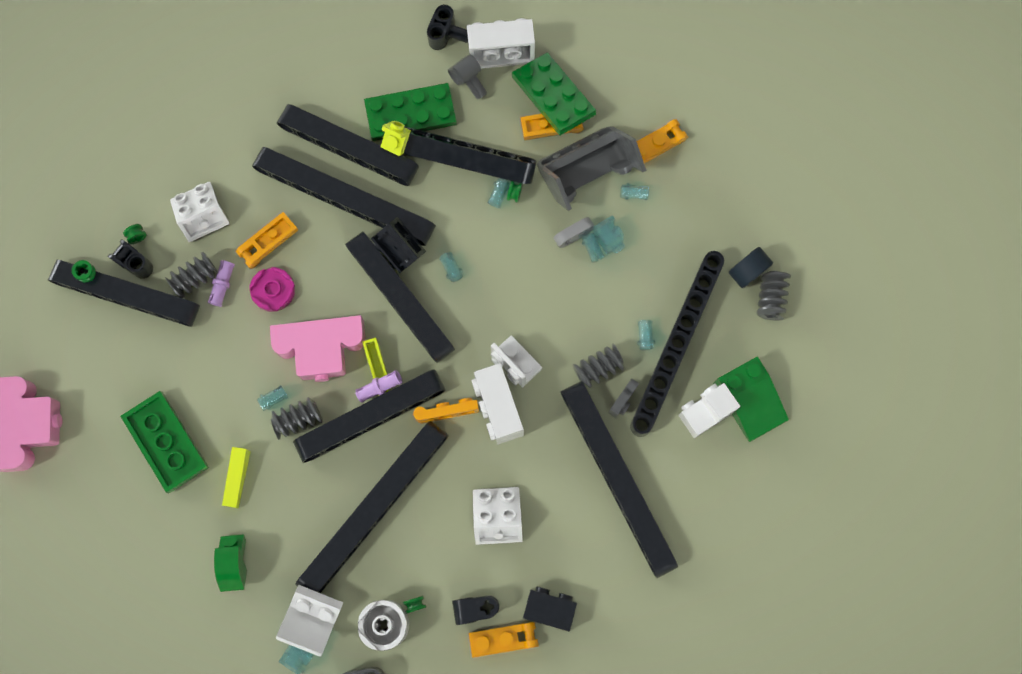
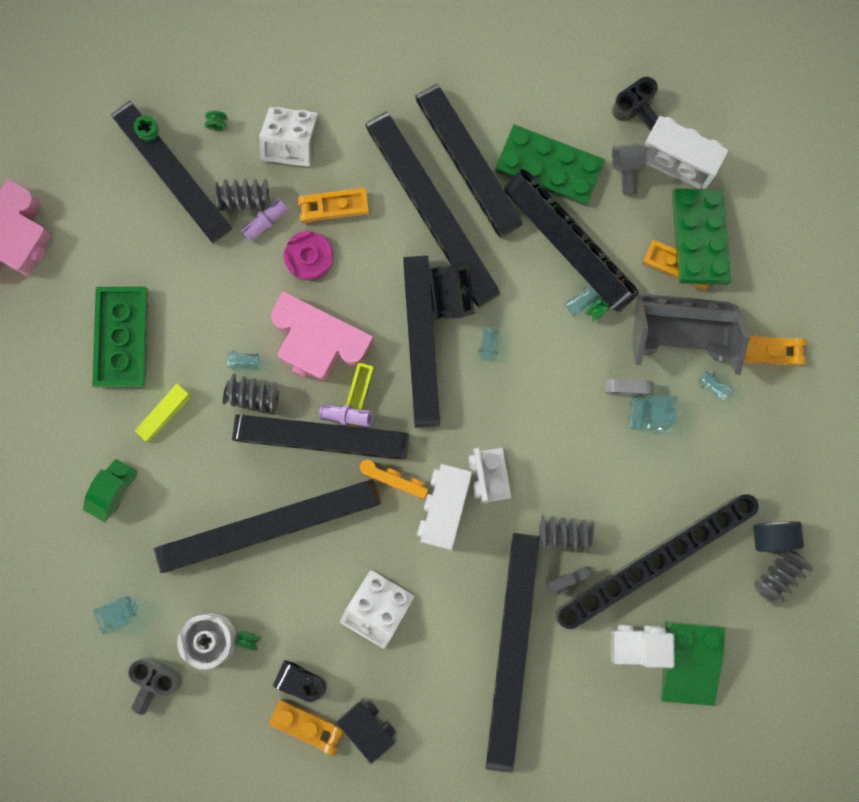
camera: 35 degrees right, 5 degrees up
(129, 258) = (196, 141): black piece -> none
(309, 620) = (142, 592): white bracket -> none
(395, 137) = (516, 184): neon yellow bracket -> none
(645, 335) = (631, 532): clear light blue pin -> none

